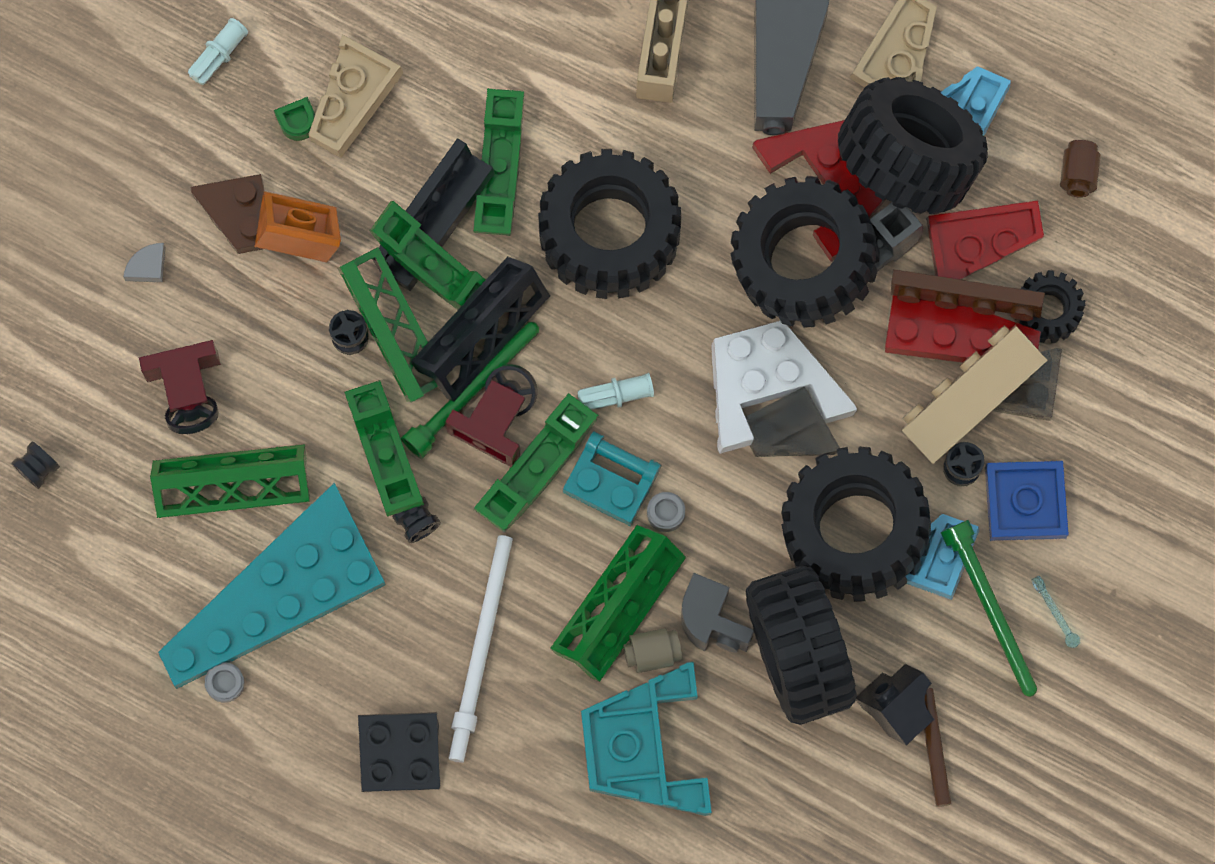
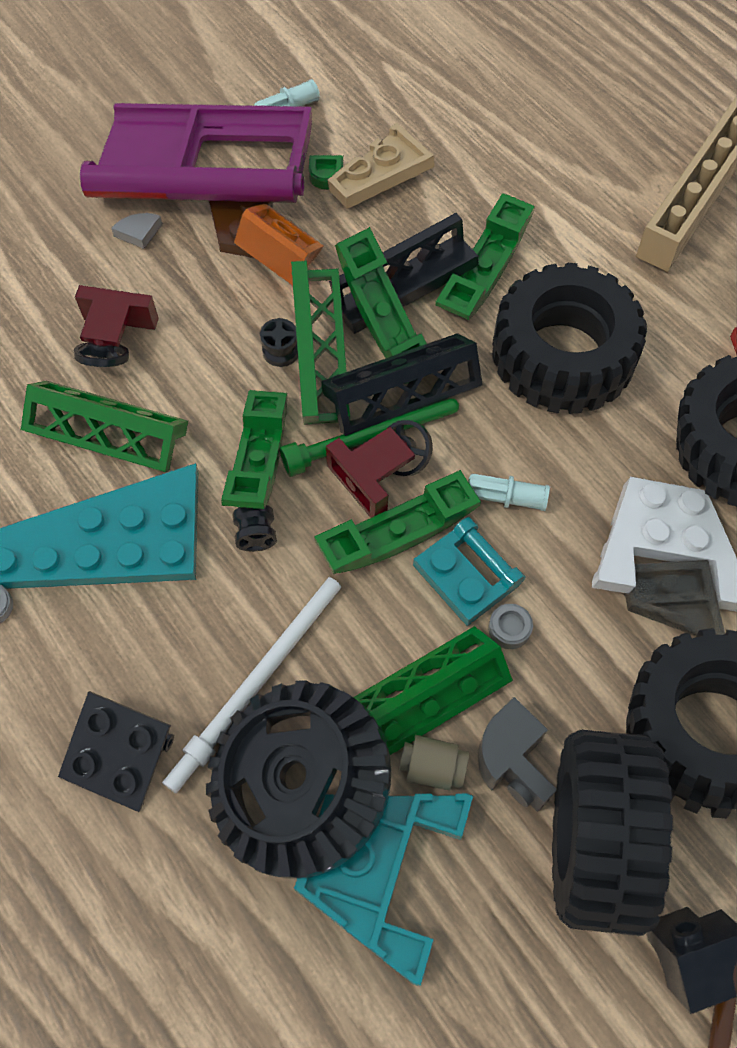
camera: 25 degrees right, 10 degrees down
(116, 170) = (157, 147): none -> magenta piece
(572, 752) = (291, 837): none -> black gear

